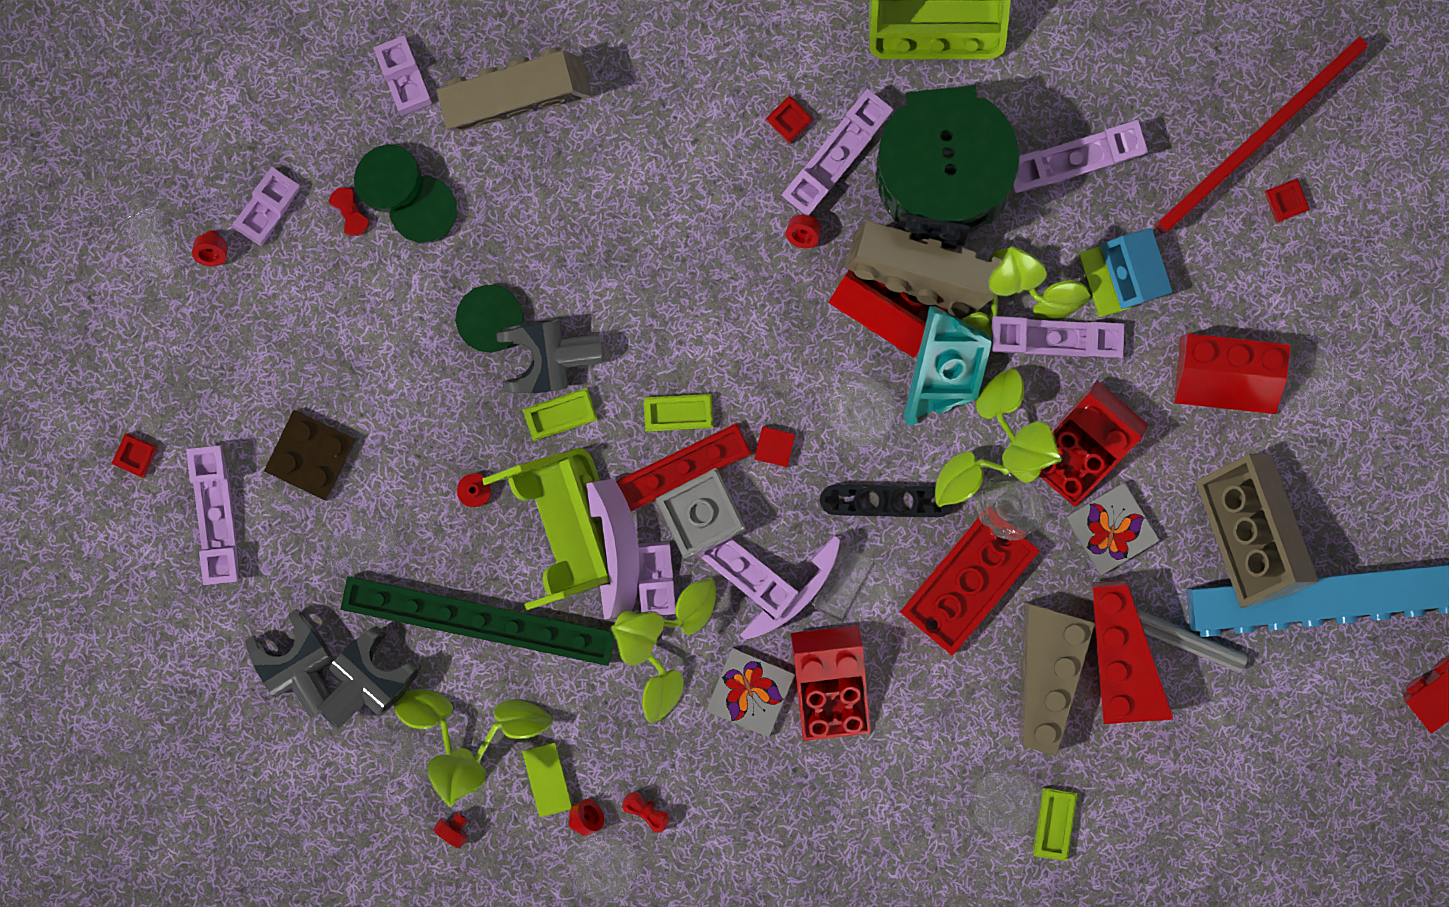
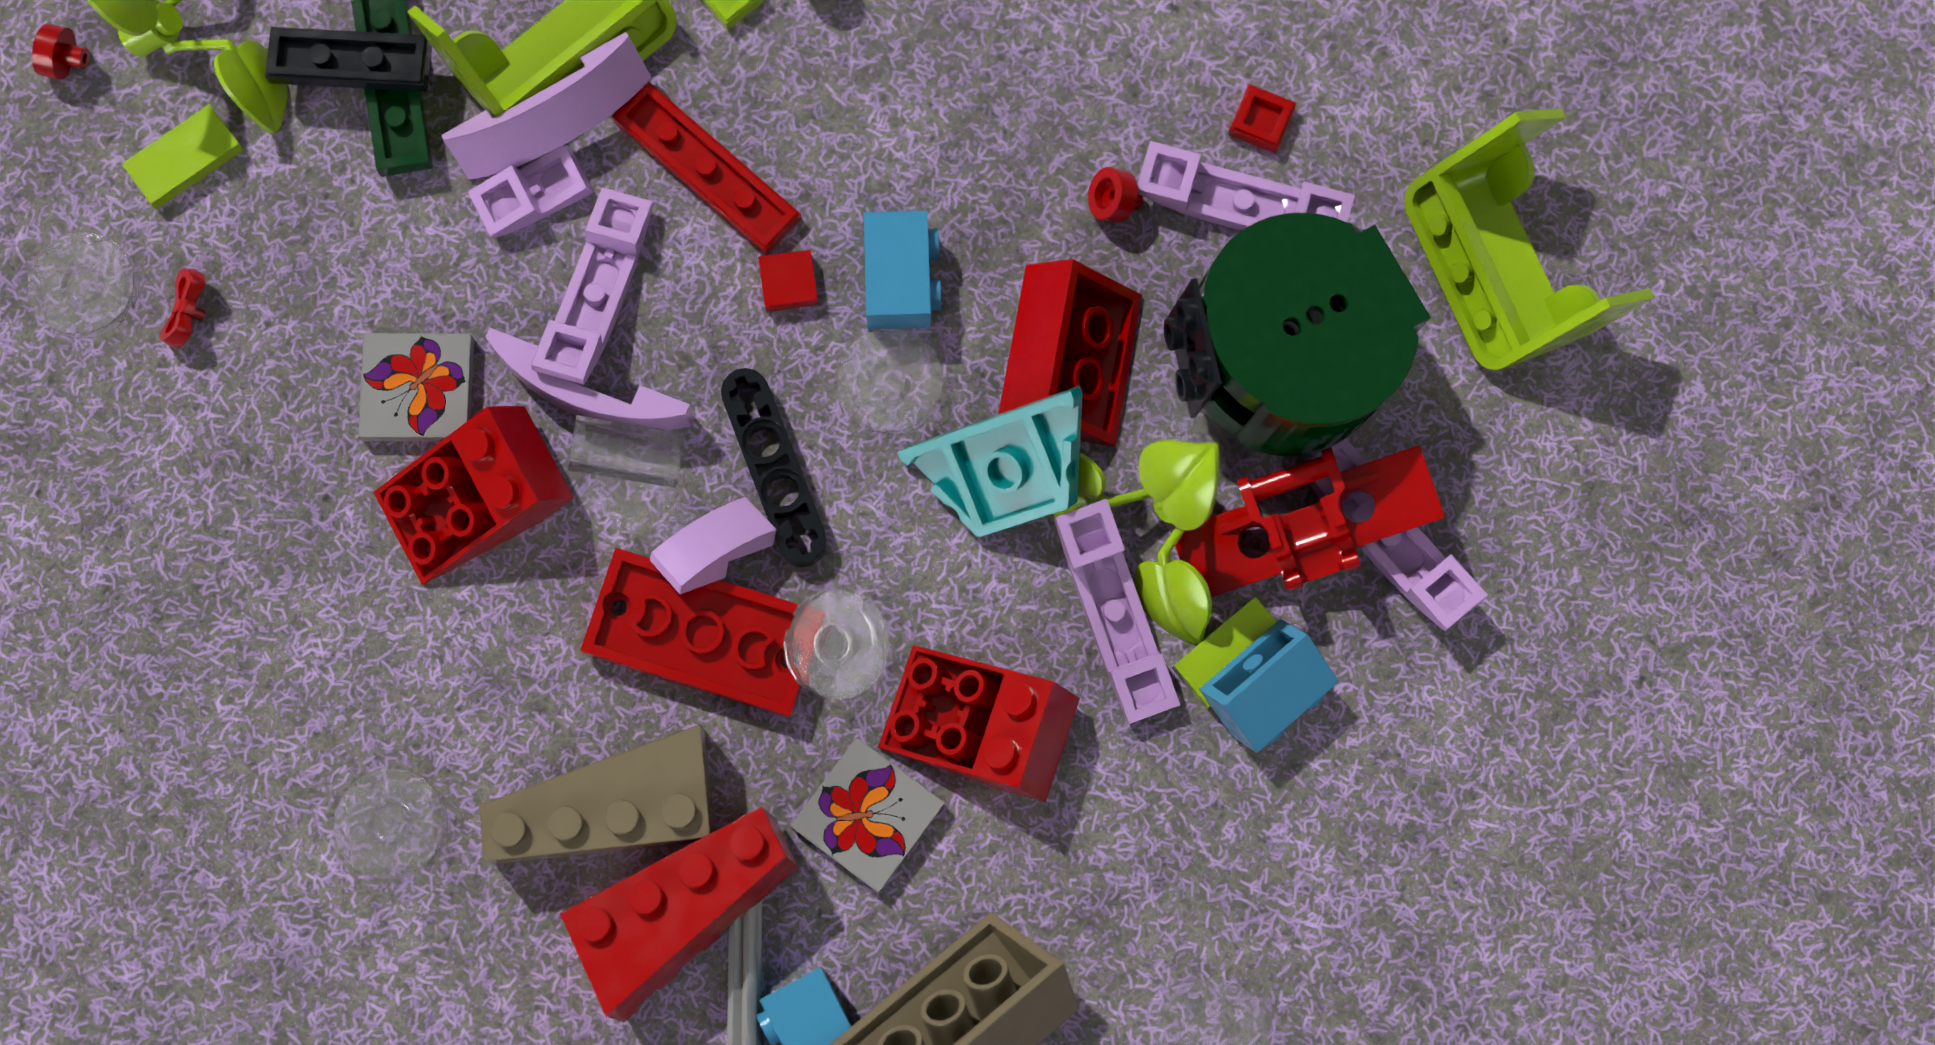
camera: 60 degrees right, 10 degrees down
(532, 656) = (348, 59): none -> black tile
(586, 817) = (144, 226): red tile -> none
(639, 633) = (420, 155): lime plant -> none
(678, 412) = (782, 131): lime tile -> none
(701, 514) = (646, 211): light grey tile -> none
(798, 378) = (898, 269): none -> dark azure brick
(920, 555) = (705, 546): none -> lavender slope
(922, 268) = (1128, 358): dark tan wedge -> none
(1025, 457) = (915, 609): lime plant -> none
(1054, 824) = (385, 913): lime tile -> none
(1063, 200) = (1316, 537): none -> red piece
(1231, 373) = (1175, 895): red slope -> none
(1261, 135) = (1550, 793): red tile -> none
(1286, 200) = (1469, 875): red tile -> none

